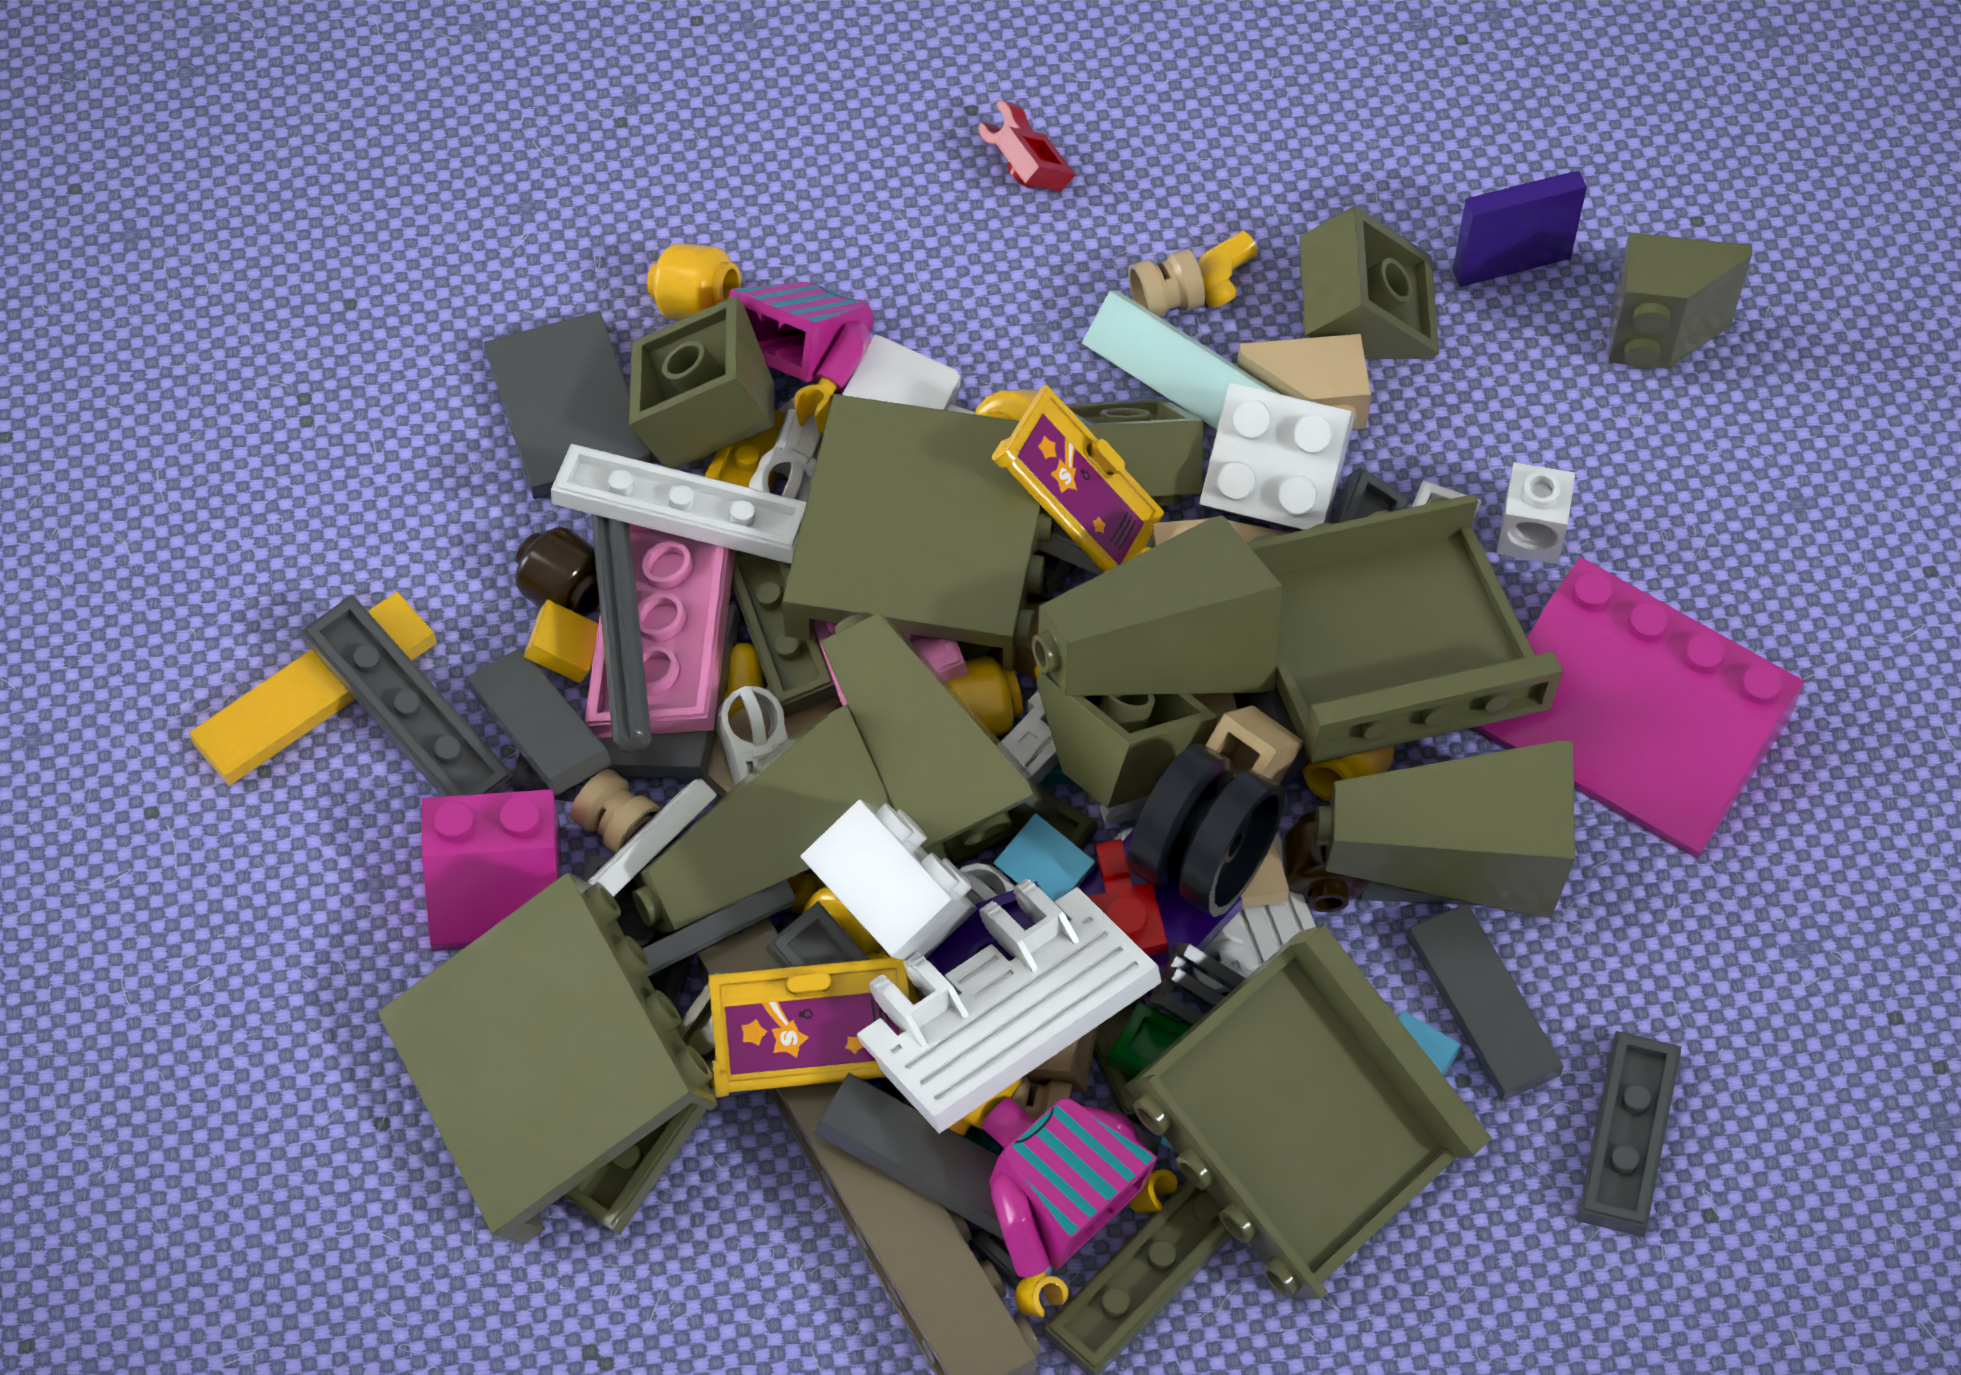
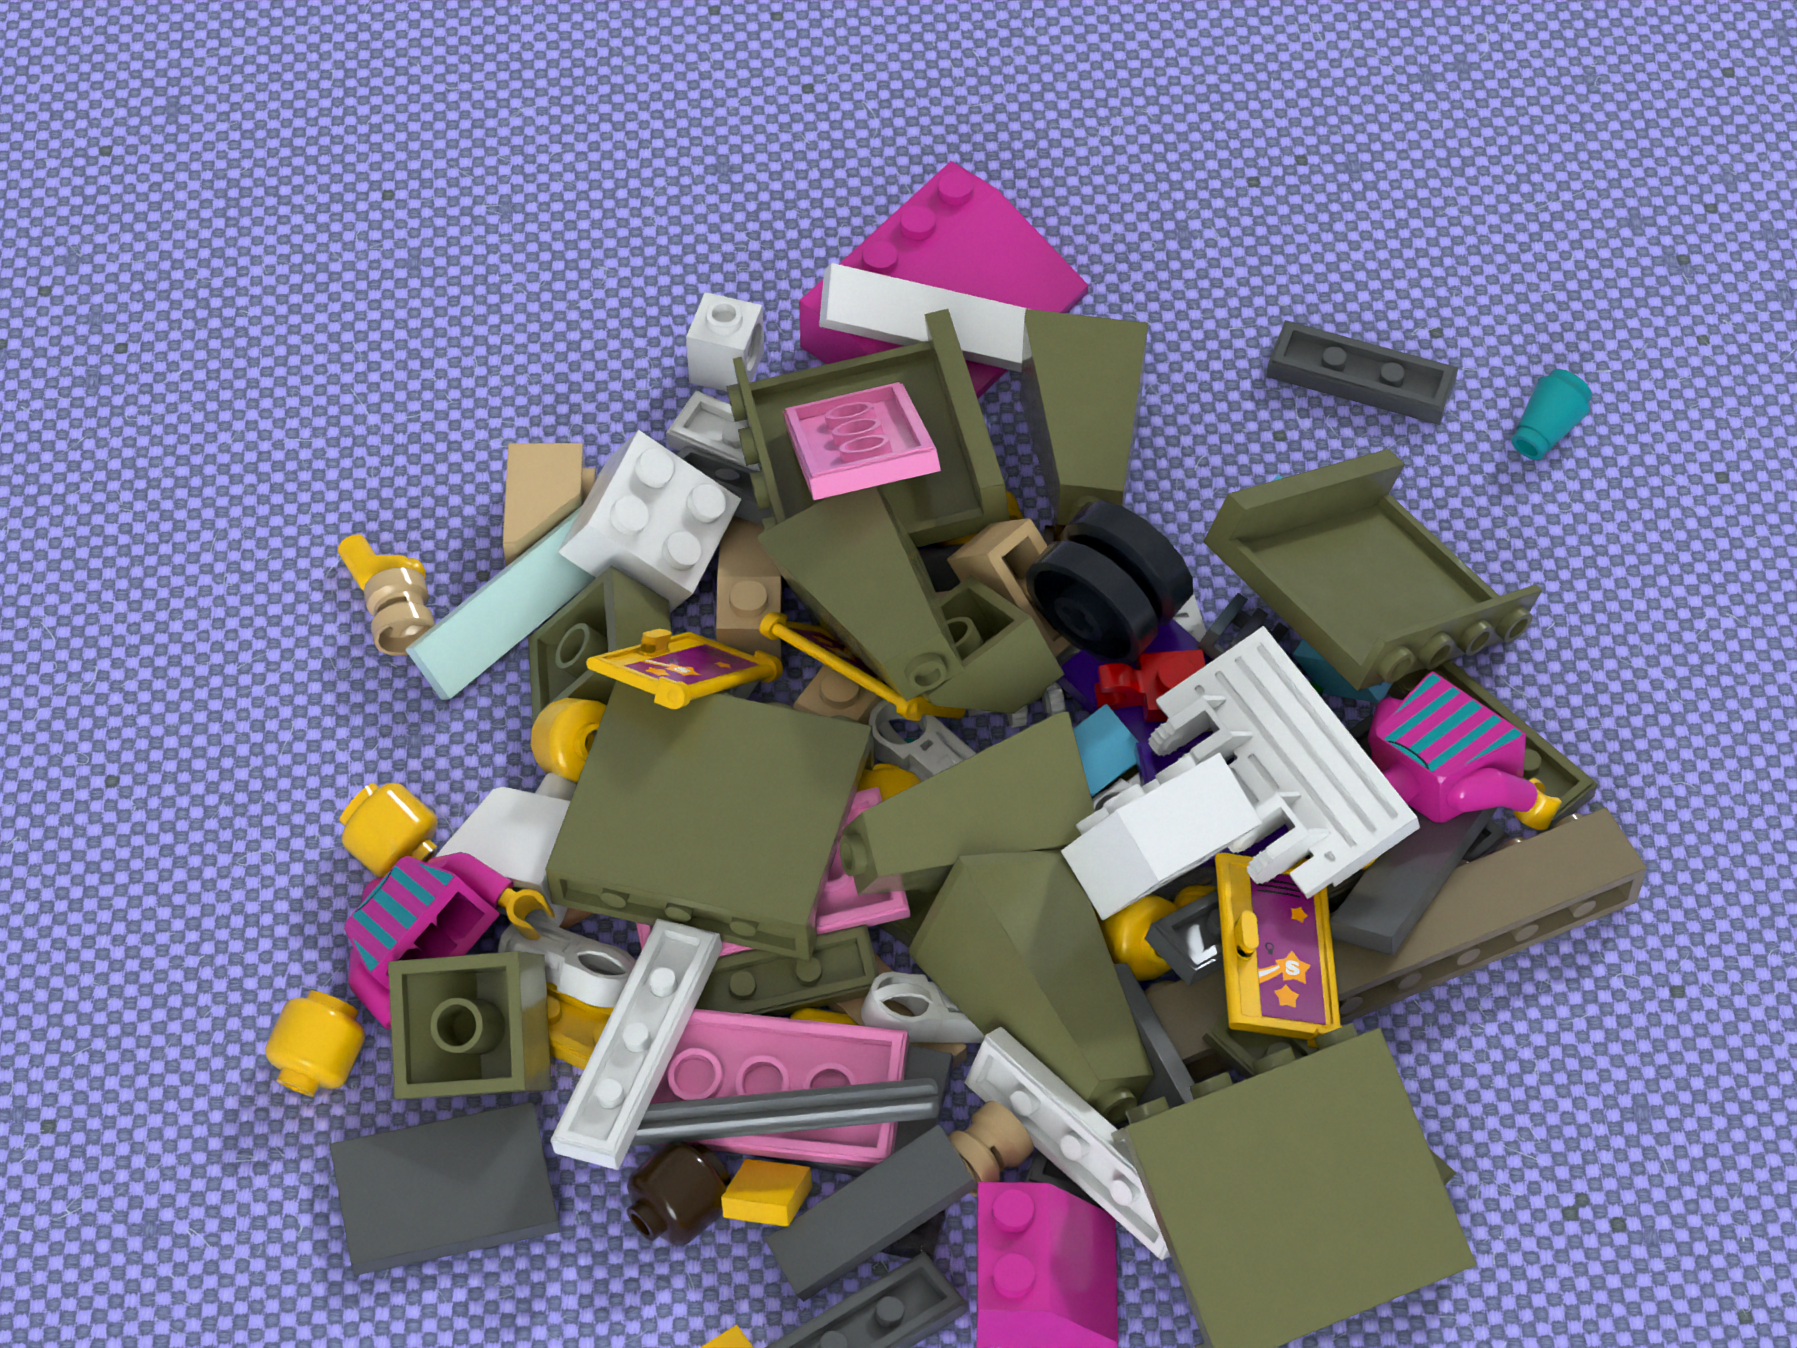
camera: 85 degrees left, 5 degrees down
(920, 307) = (386, 826): none -> yellow head
(1030, 154) = (205, 717): plate -> none
(1351, 591) = (860, 440): none -> bright pink tile
(1369, 284) = (438, 450): olive slope -> none
(1485, 1002) = (1229, 457): dark grey tile -> none
(1519, 228) = (404, 304): dark purple tile -> none
(1588, 695) = (895, 311): none -> white tile
(1594, 1325) = (1551, 412): none -> teal cone
(1673, 297) = (510, 204): olive slope -> none

